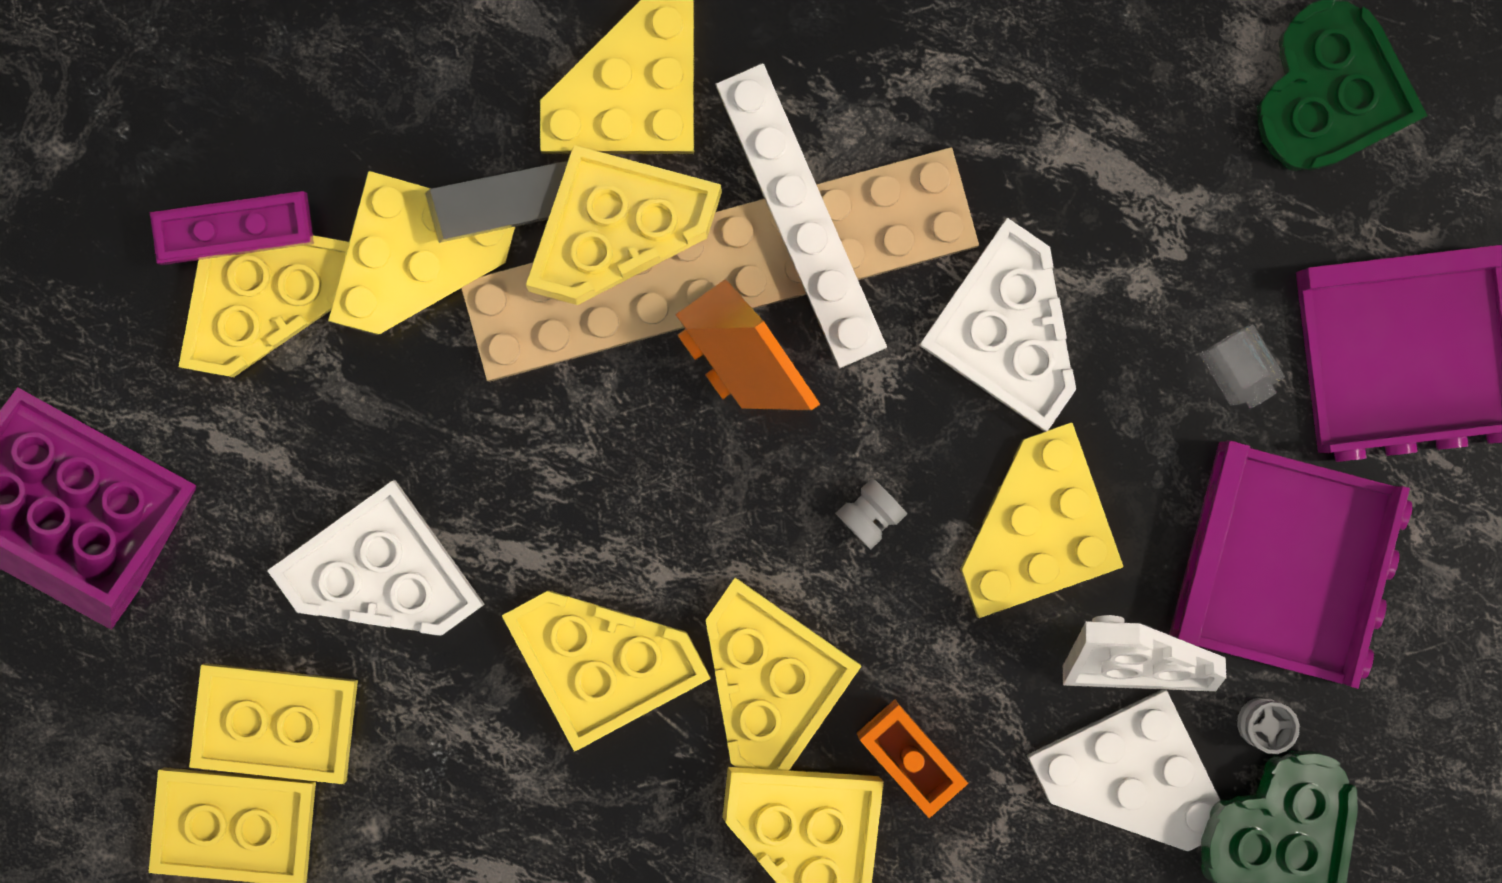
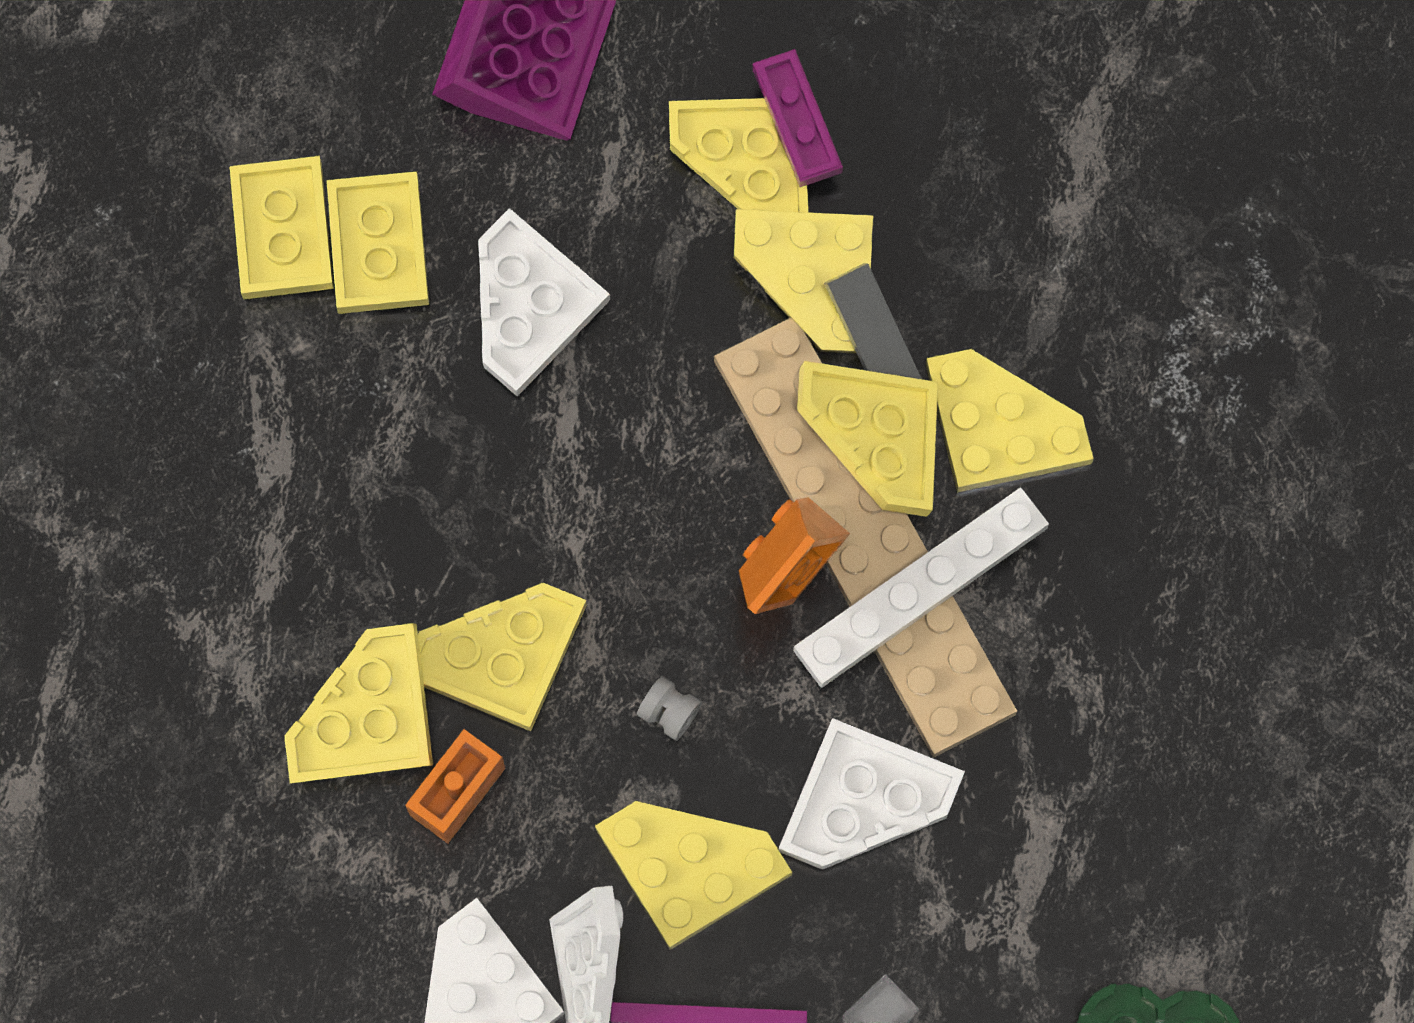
camera: 85 degrees right, 15 degrees down
(601, 663) = (485, 503): light yellow plate -> none

